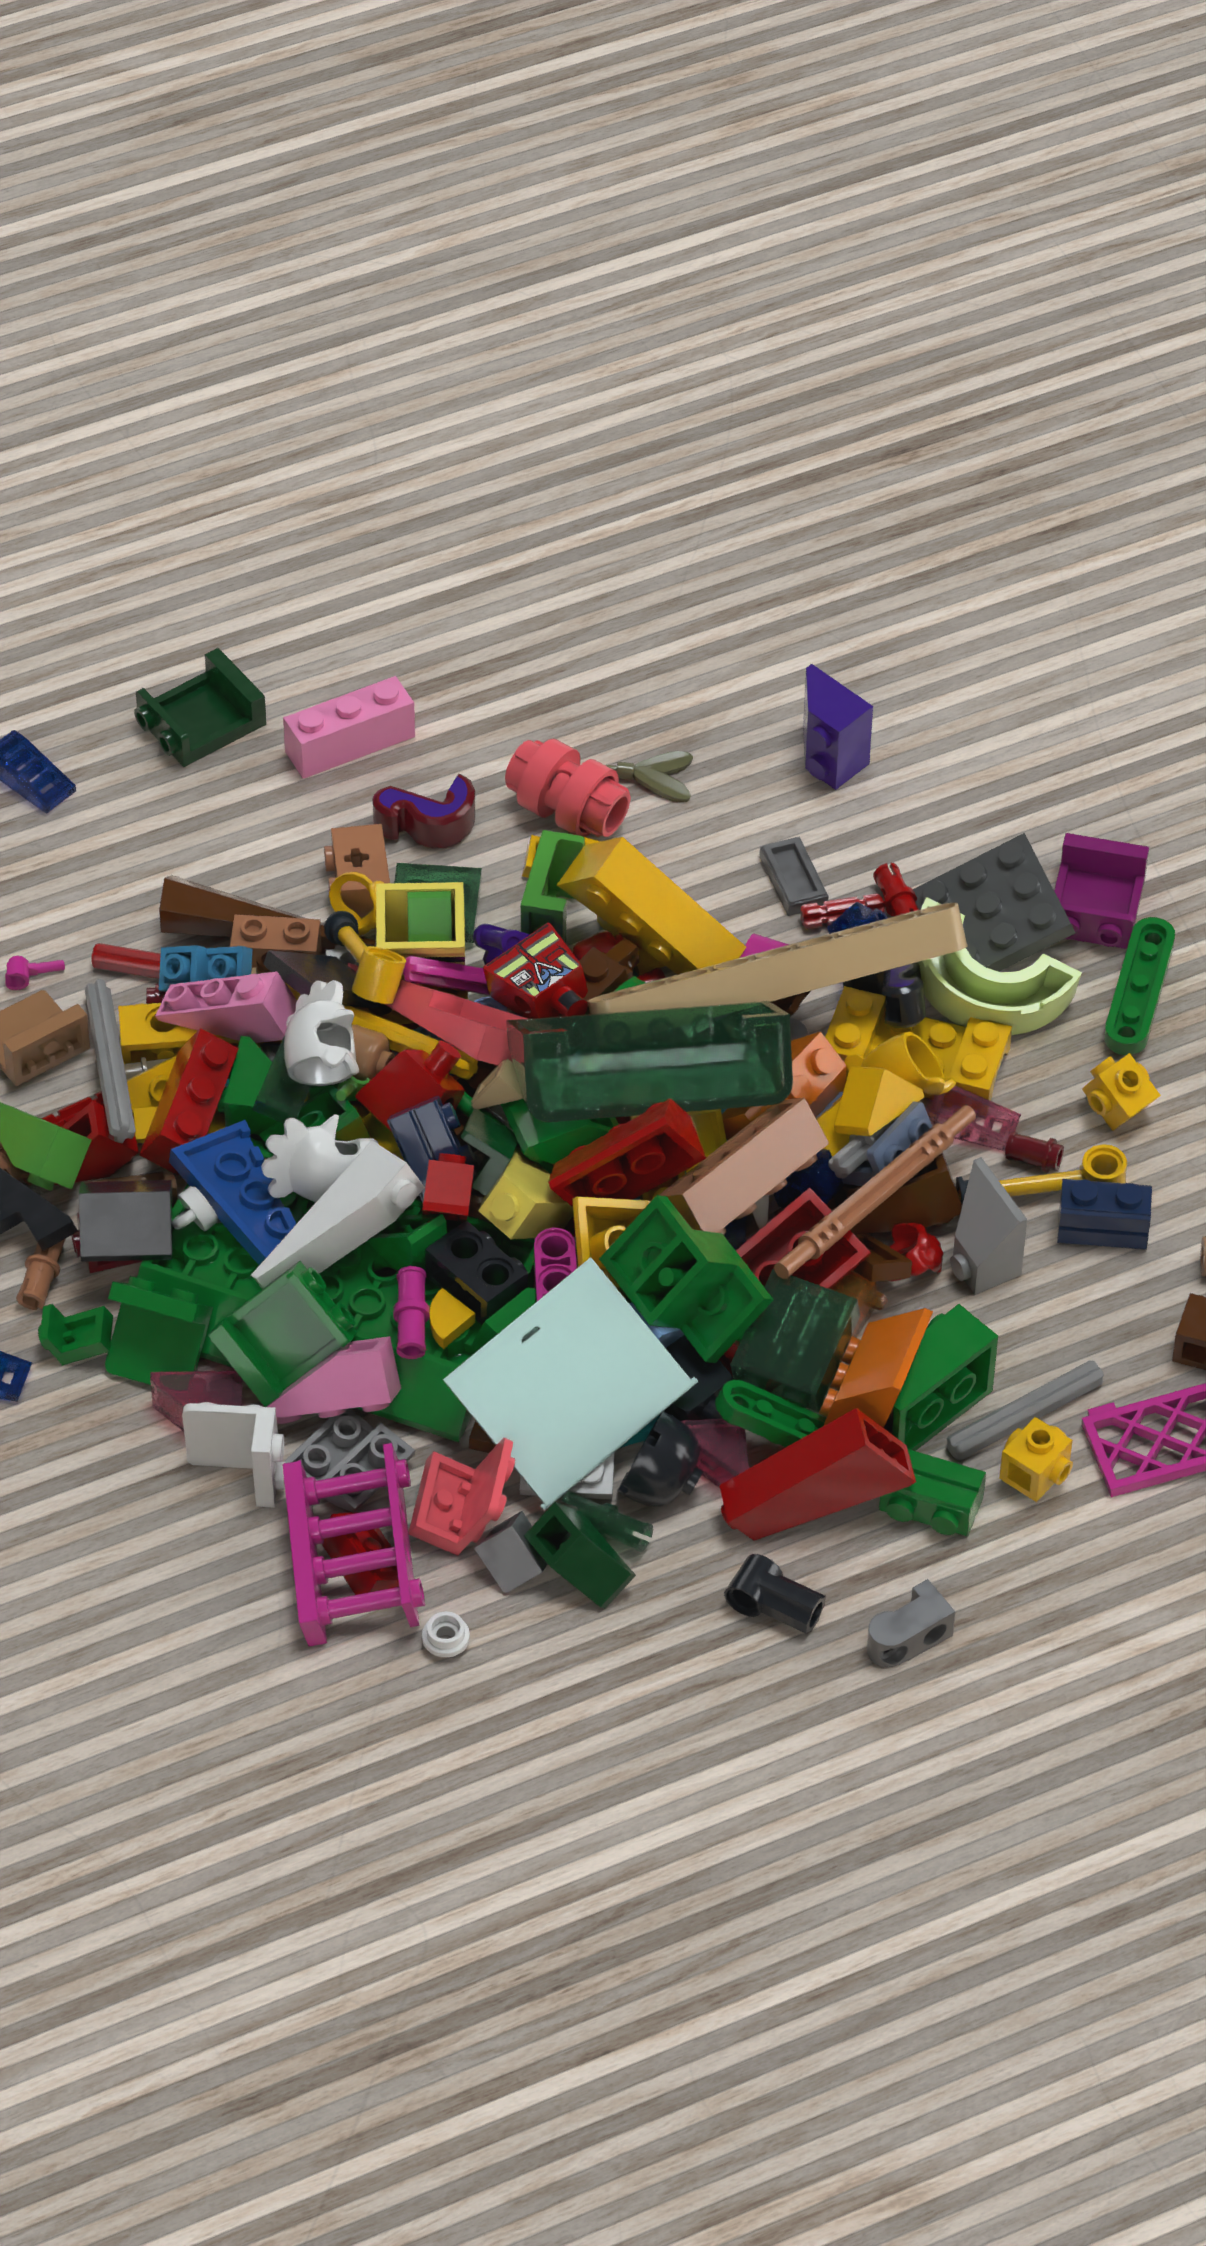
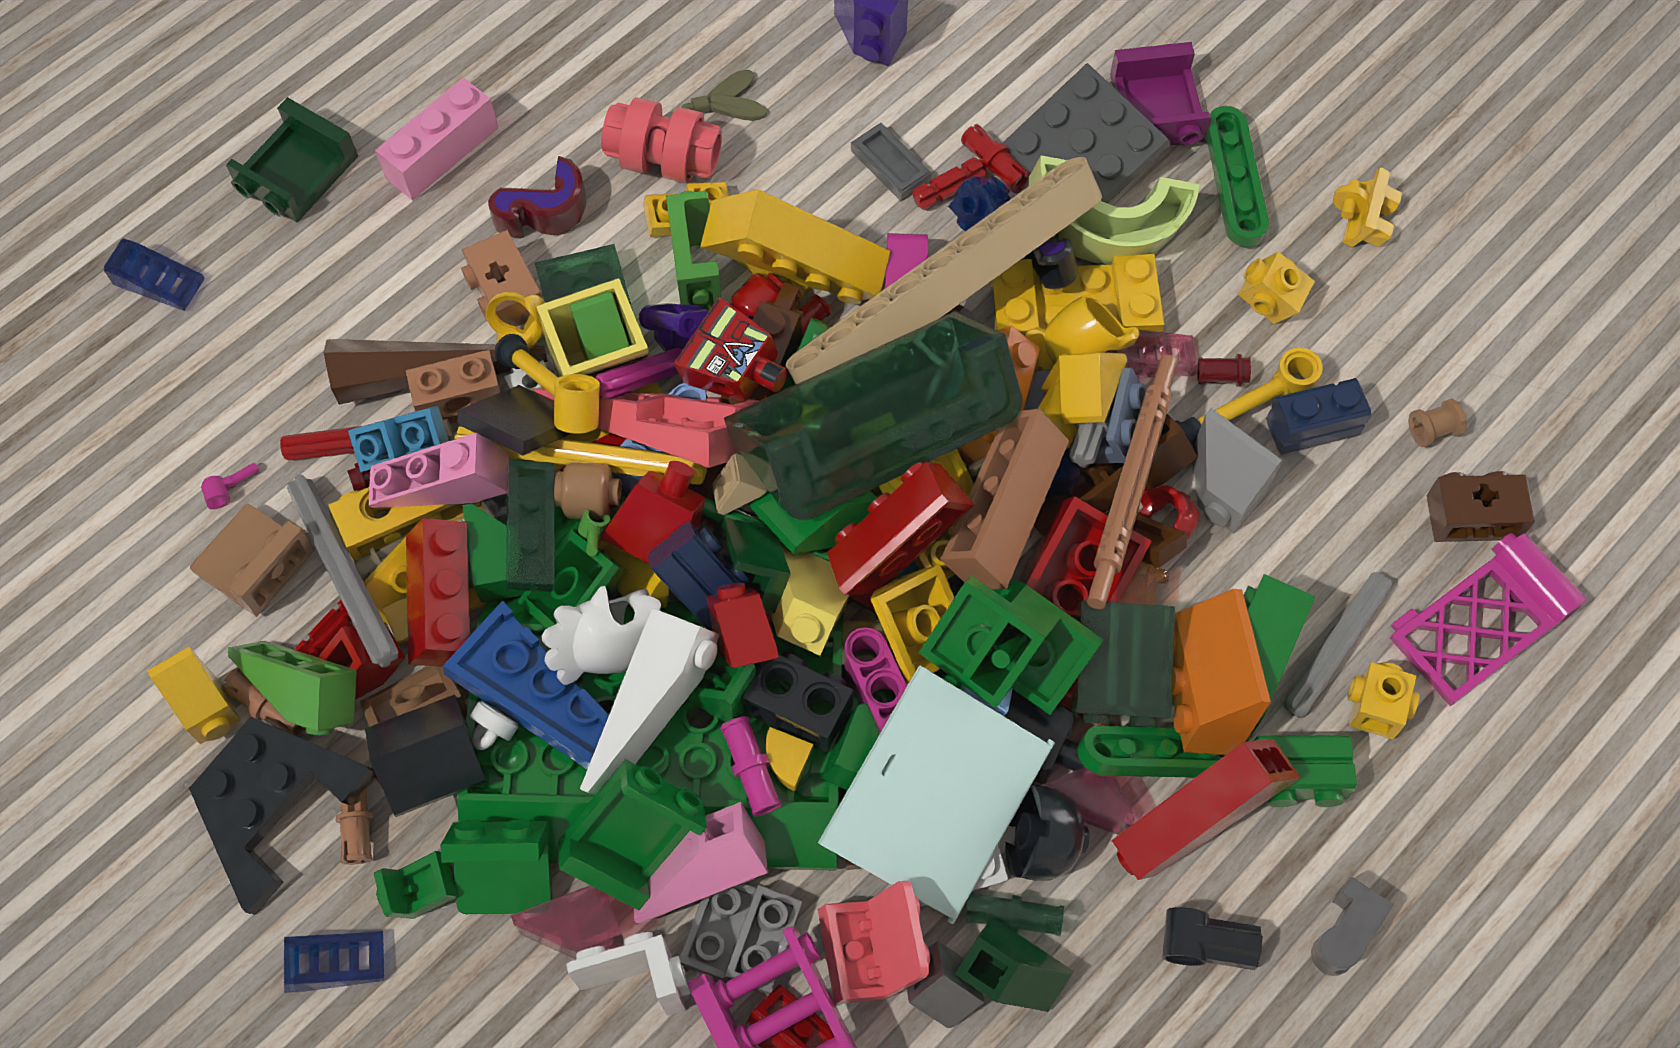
camera: 20 degrees left, 15 degrees up
(320, 1037) = (548, 494): white piece -> none

